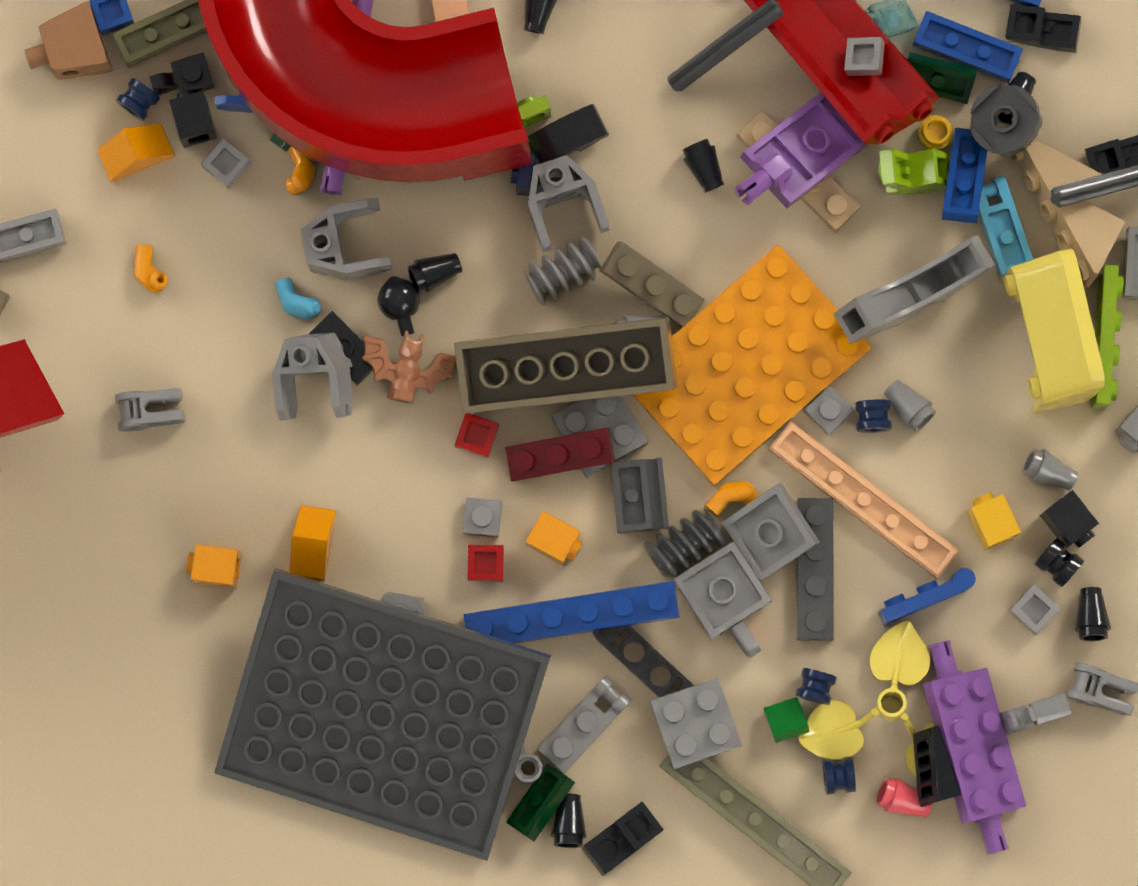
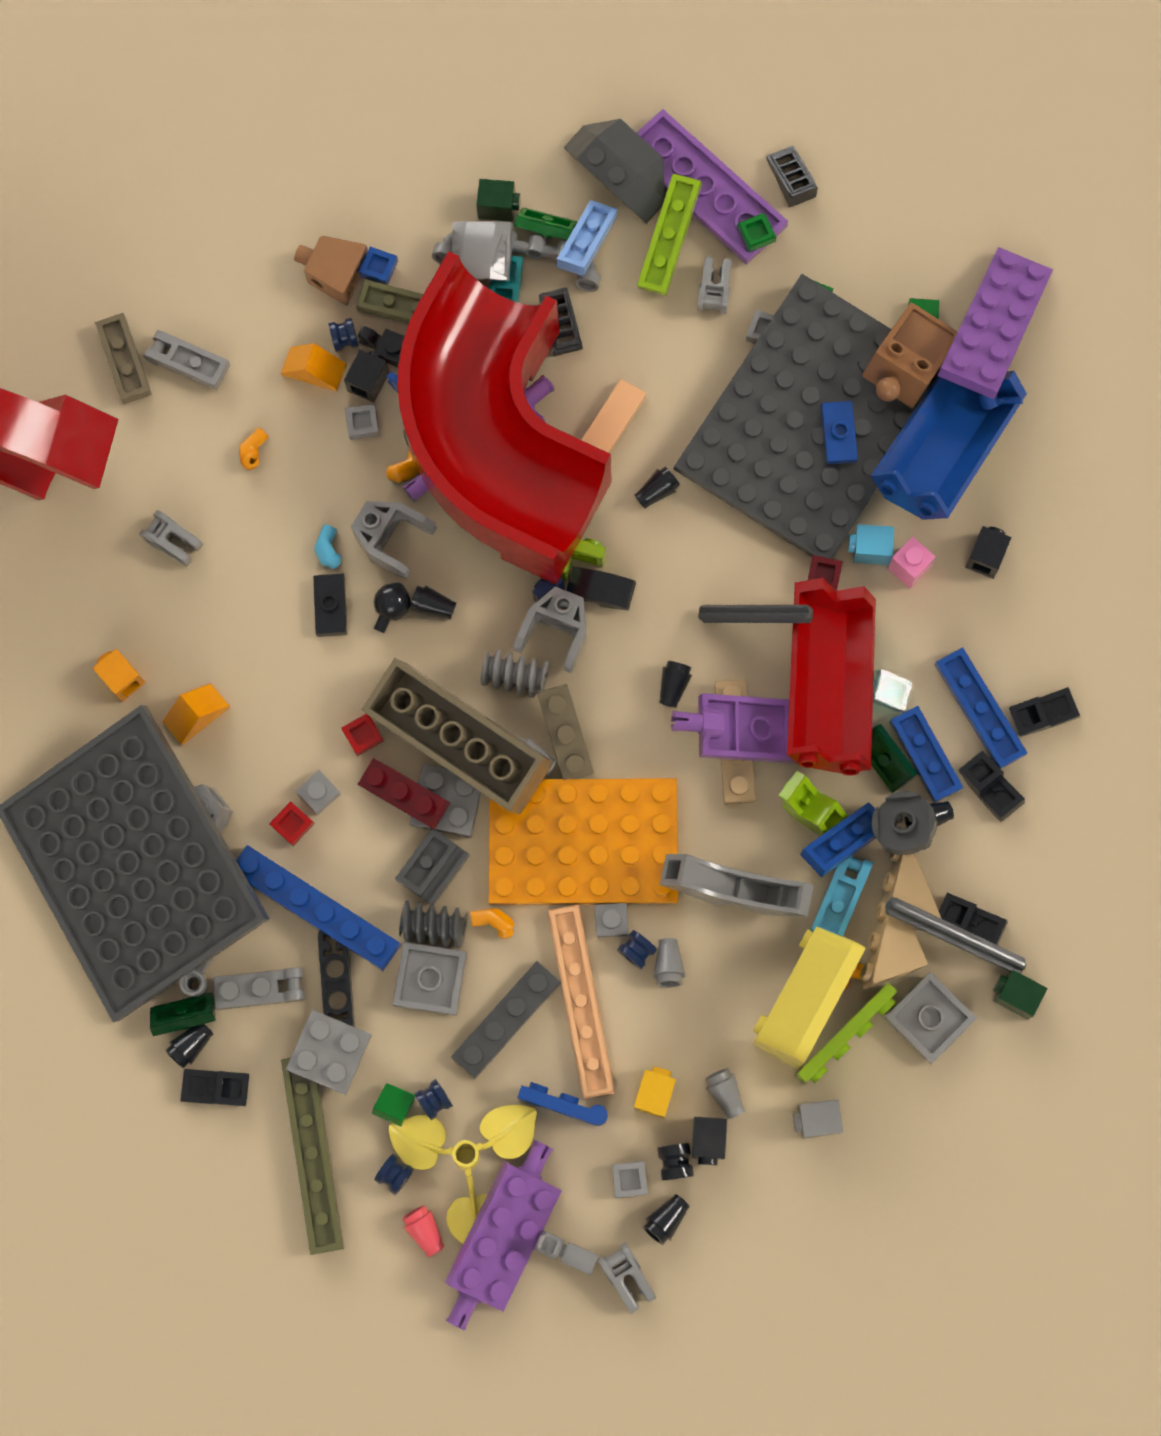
camera: 45 degrees right, 5 degrees down
(308, 355) = (299, 588): light grey piece -> none
(405, 373) = (352, 654): nougat animal -> none
(554, 539) = (350, 846): light orange brick -> none
(745, 639) = (415, 1025): light grey tile -> none
(770, 532) = (495, 967): light grey plate -> none
(864, 56) = (843, 699): light grey plate -> none
(933, 768) = (459, 1226): black slope -> none
(935, 132) = (852, 794): yellow plate -> none

